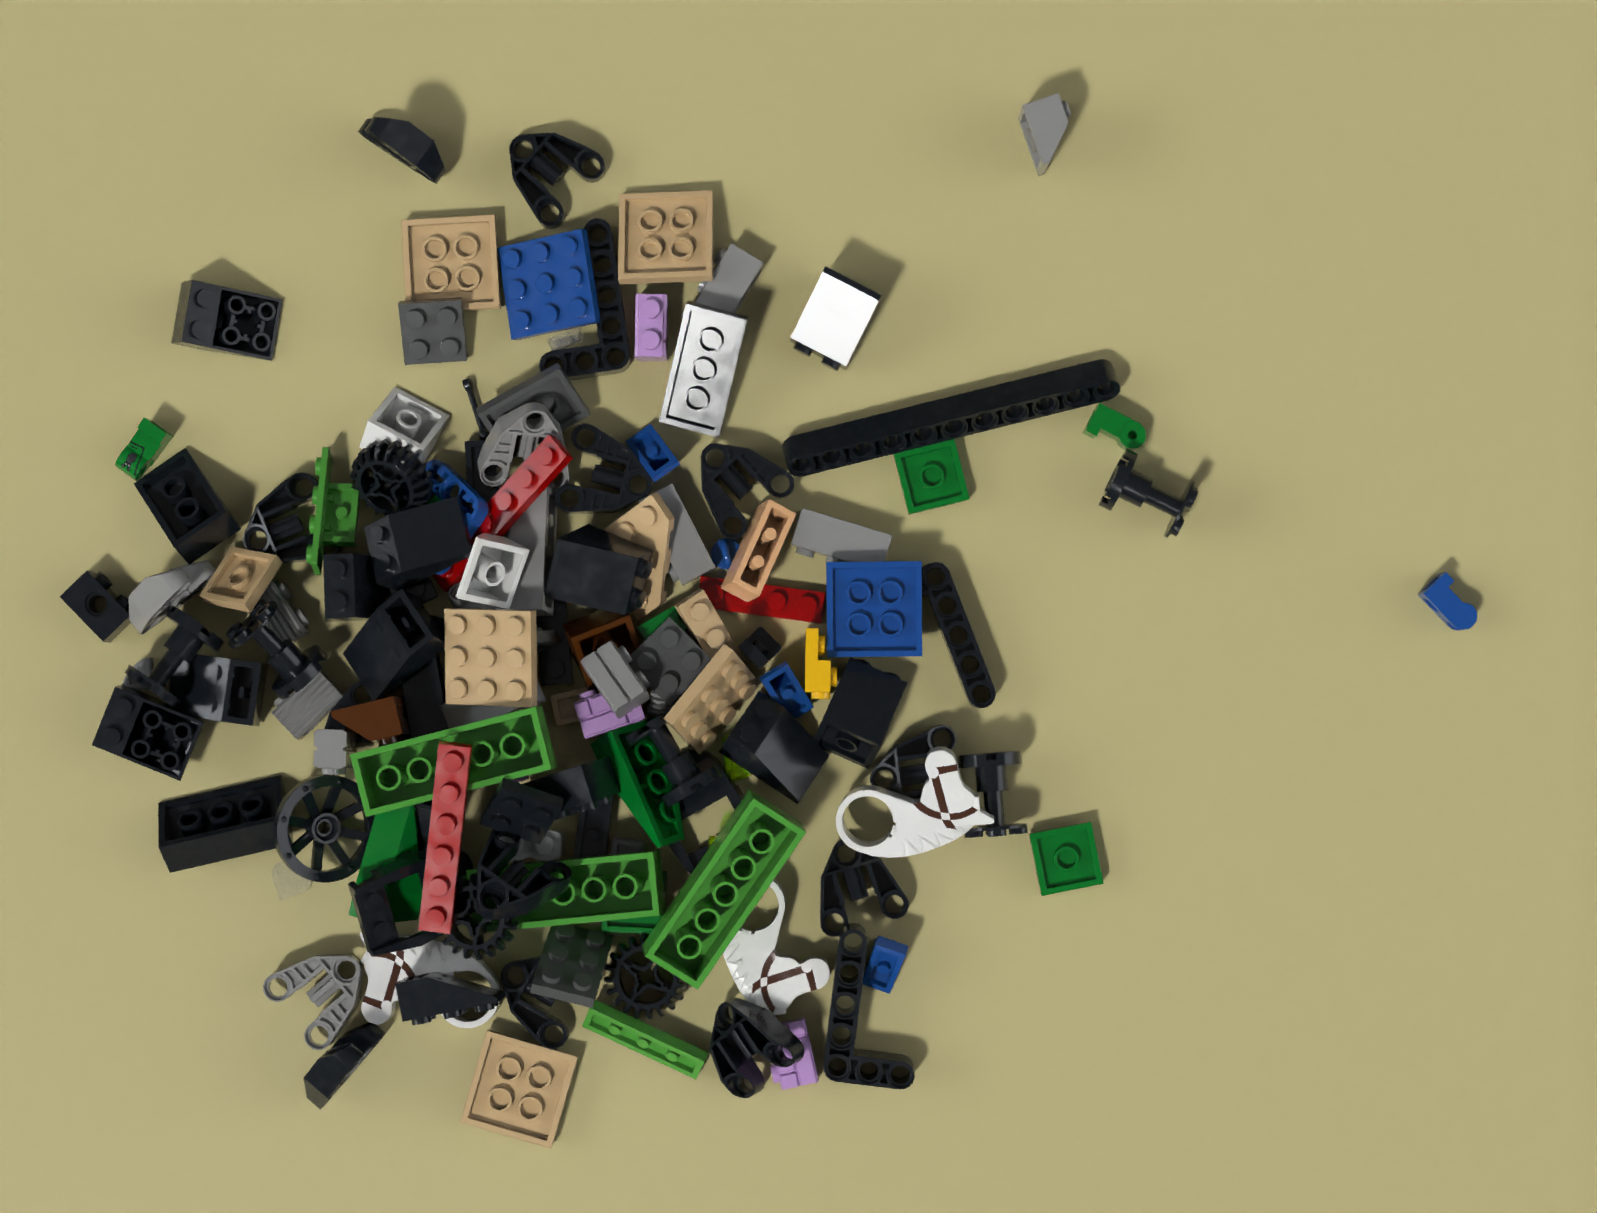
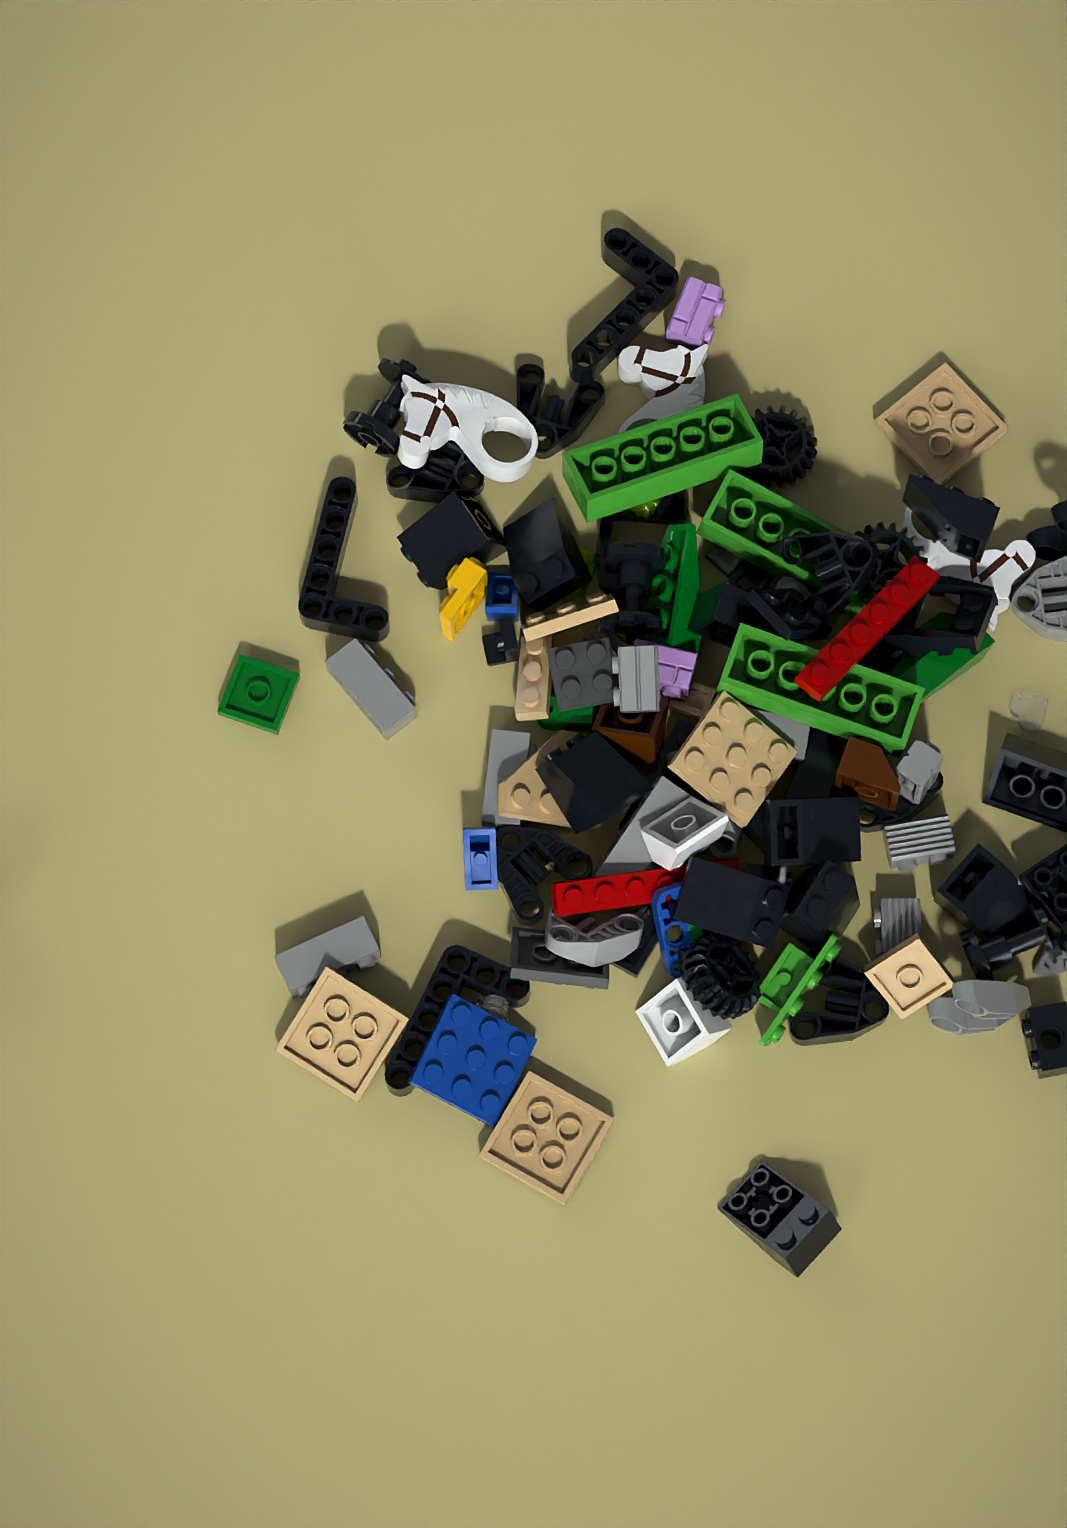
camera: 145 degrees left, 15 degrees down
(143, 449) = (926, 1152): green leg -> none
(187, 506) = (918, 1078): black slope -> none
(292, 664) = (910, 870): black piece -> none
(328, 835) = (972, 727): black wheel -> none
(406, 145) = (517, 1266): black connector -> none
(433, 330) = (601, 1088): dark grey plate -> none
(468, 386) = (616, 975): black hinge -> none
(529, 1014) = (847, 497): black connector -> none
(566, 151) = (432, 1157): black connector -> none
(572, 964) = (832, 480): dark grey plate -> none
(645, 1039) = (810, 399): bright green plate -> none
(651, 327) = (408, 967): lavender brick -> none
(703, 369) = (388, 898): plate -> none
(724, 553) = (475, 742): blue tile -> none
(745, 1036) = (727, 345): black connector -> none
(757, 467) = (398, 792): black connector -> none
(758, 550) = (446, 718): light nougat brick -> none
(772, 602) = (469, 685): red plate -> none
(835, 319) = (247, 870): slope -> none
(874, 609) = (382, 607): blue plate -> none
(884, 964) = (566, 335): blue slope -> none
(950, 417) = (208, 729): black beam -> none
(1066, 858) = (365, 326): green plate -> none
(1115, 425) = (73, 632): green leg -> none
(1138, 488) = (101, 580): black piece -> none

